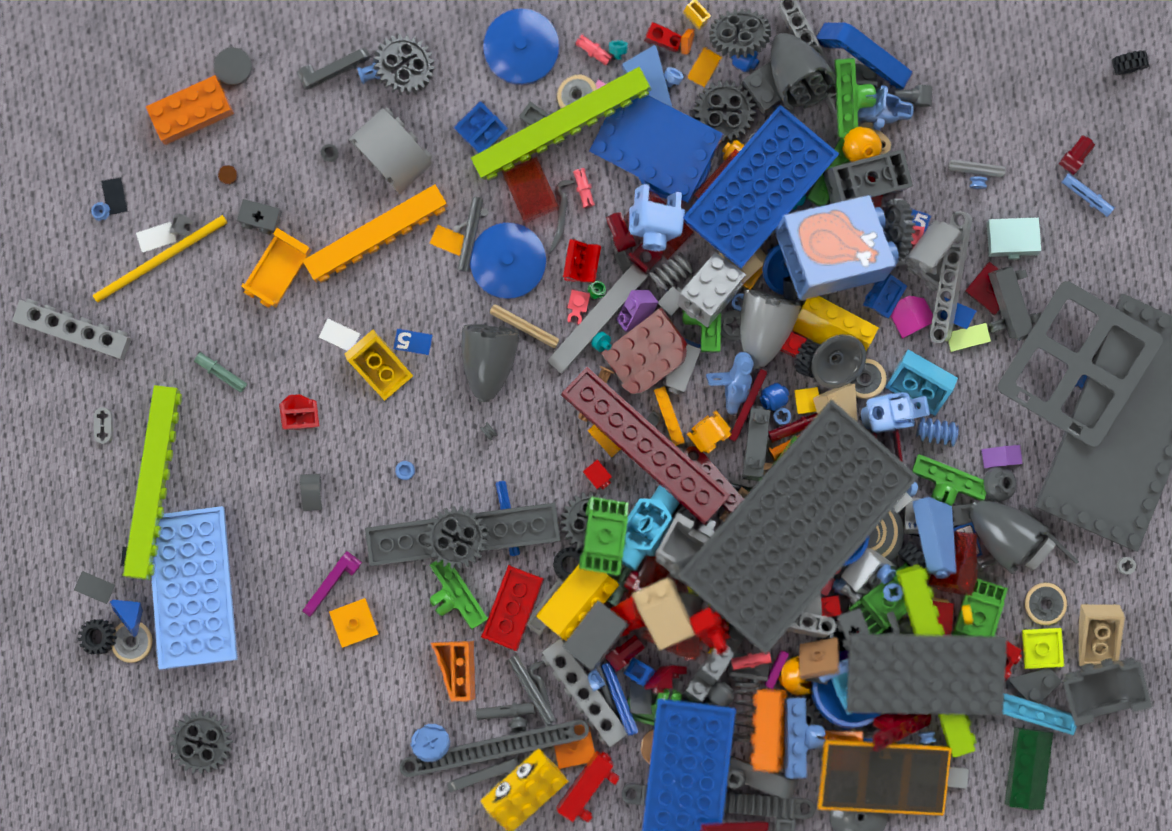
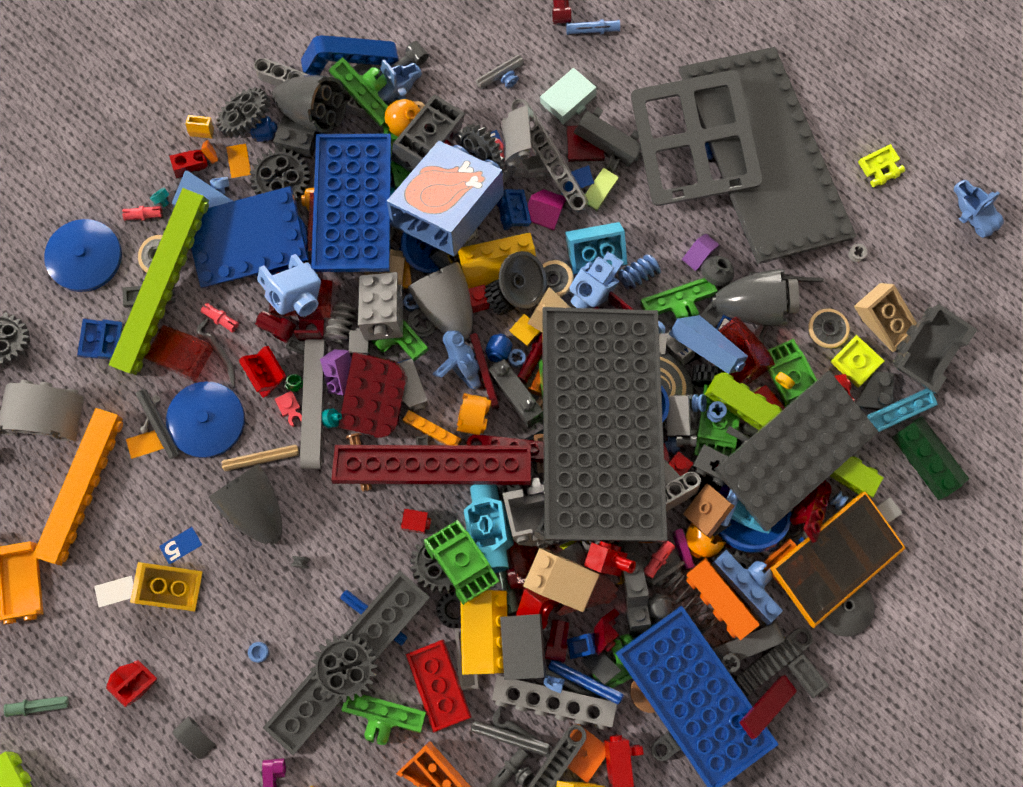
camera: 50 degrees left, 10 degrees down
(604, 441) = (398, 490): light orange panel -> none

